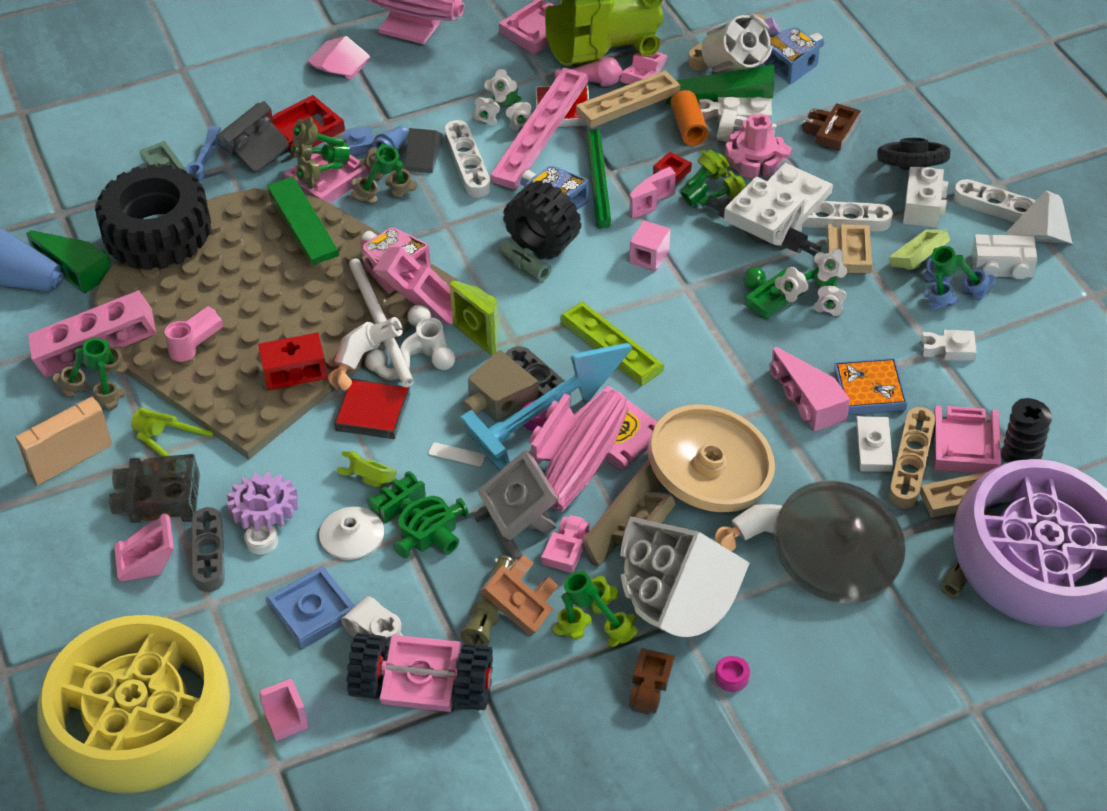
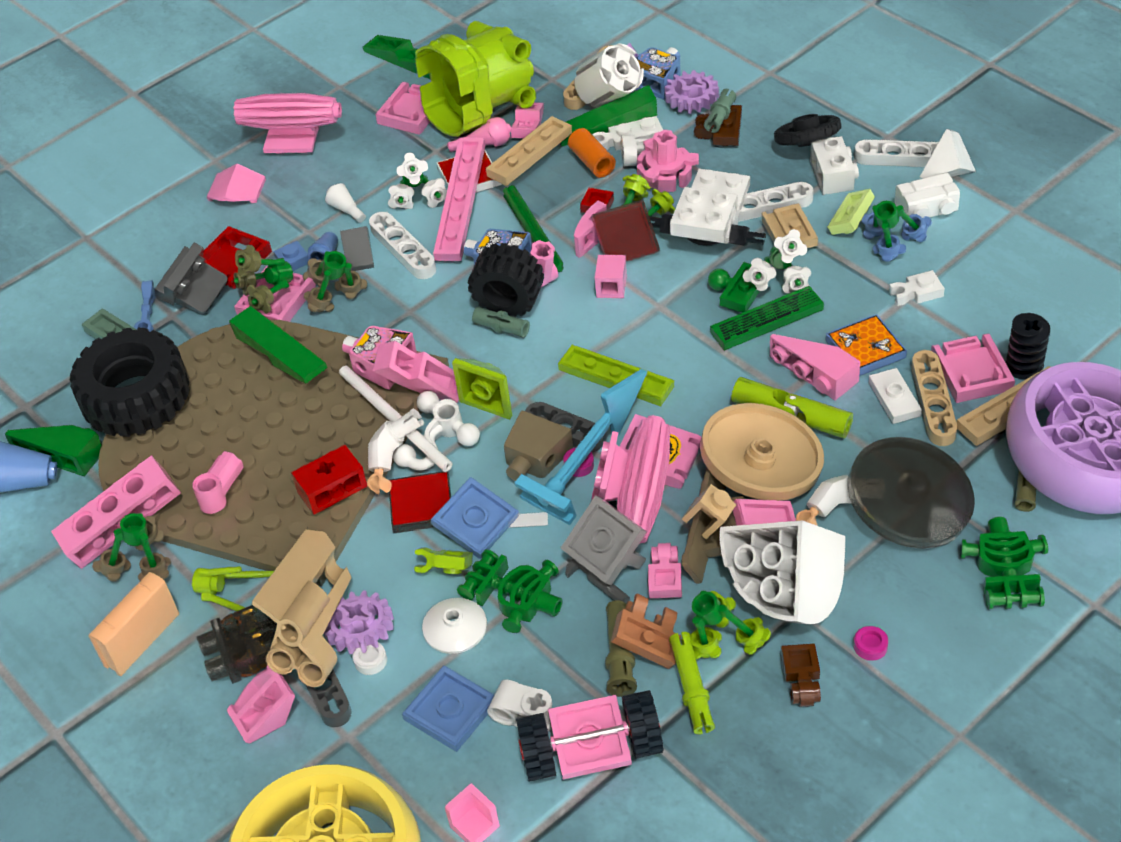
camera: 15 degrees left, 0 degrees up
(210, 472) = (303, 608): none -> tan panel
(413, 438) = (475, 517): none -> medium blue tile
(428, 96) = (340, 198): none -> white cone
(539, 667) = (695, 695): none -> lime pin
(587, 206) = (545, 255): none -> bright pink piece
(634, 494) = (713, 503): none -> tan window
(683, 206) = (626, 231): none -> clear smoke tile
(685, 516) = (762, 511): none -> bright pink tile
(777, 432) = (815, 414): none -> lime piece
(785, 330) = (766, 317): none -> green tile
(818, 83) = (691, 91): none -> lavender gear
(834, 109) = (720, 110): none -> sand green pin
(904, 636) = (1006, 559): none -> green piece

